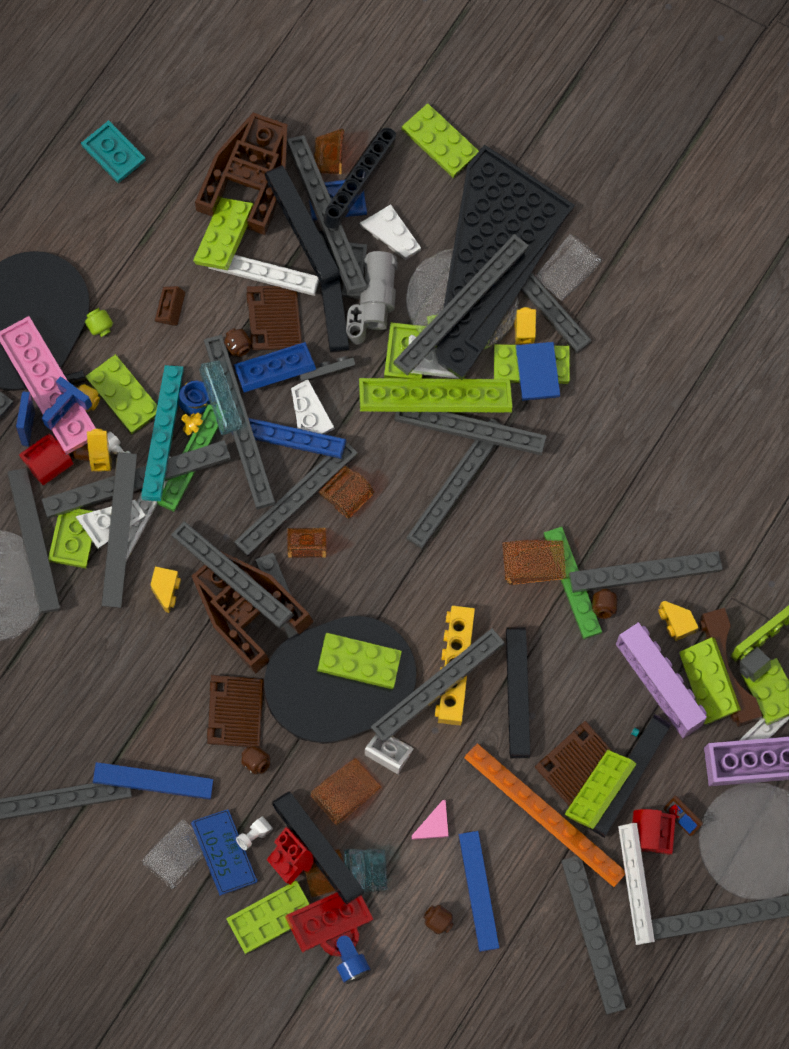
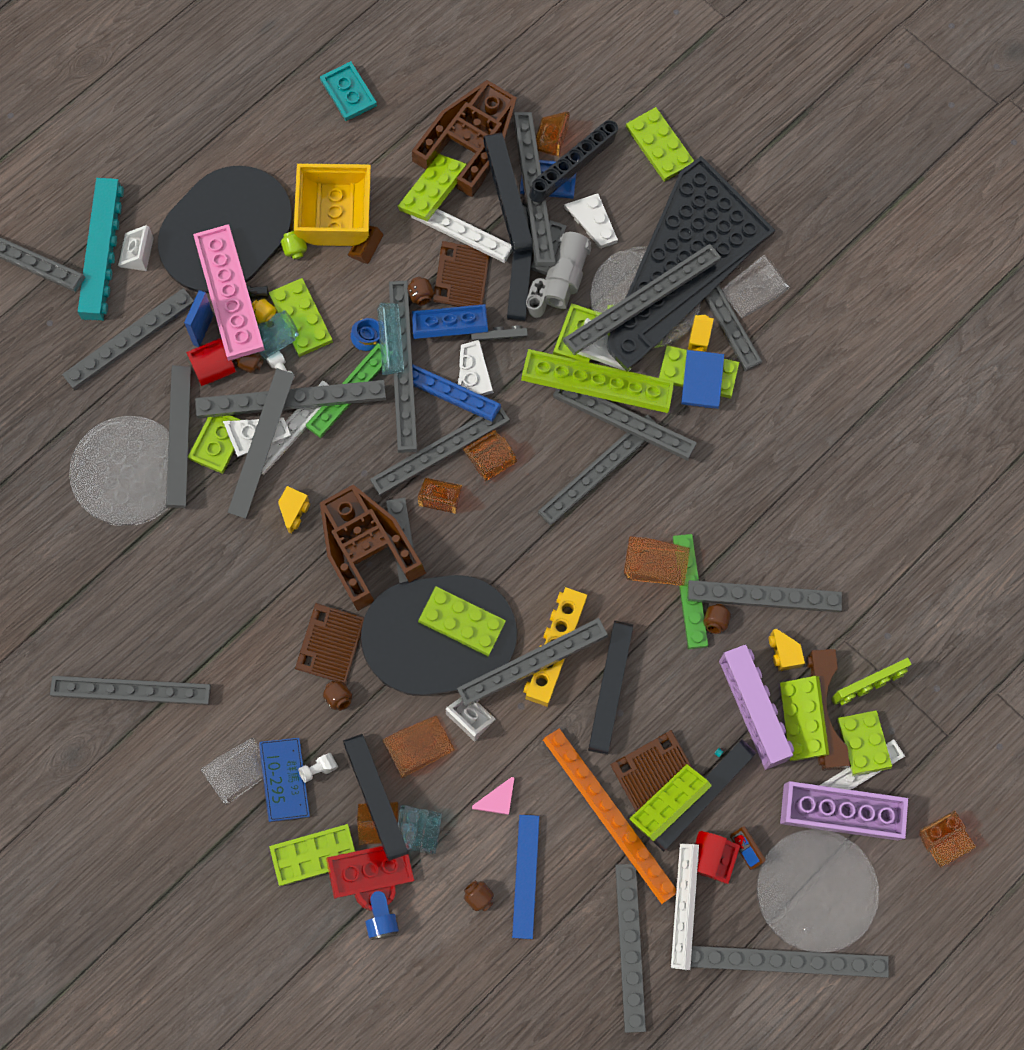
camera: 15 degrees right, 0 degrees up
(65, 402) = (237, 311): blue bracket -> none
(99, 450) = (258, 362): yellow slope -> none
(108, 414) = (277, 333): none -> clear light blue brick
(130, 273) = (332, 204): none -> yellow container
(152, 780) = (232, 693): blue tile -> none
(162, 433) = (326, 361): teal plate -> none
(191, 423) = (357, 357): yellow plant -> none
(232, 575) = (358, 511): dark grey tile -> none
(290, 856) = (346, 799): red brick -> none
(755, 664) = (853, 712): dark grey brick -> none

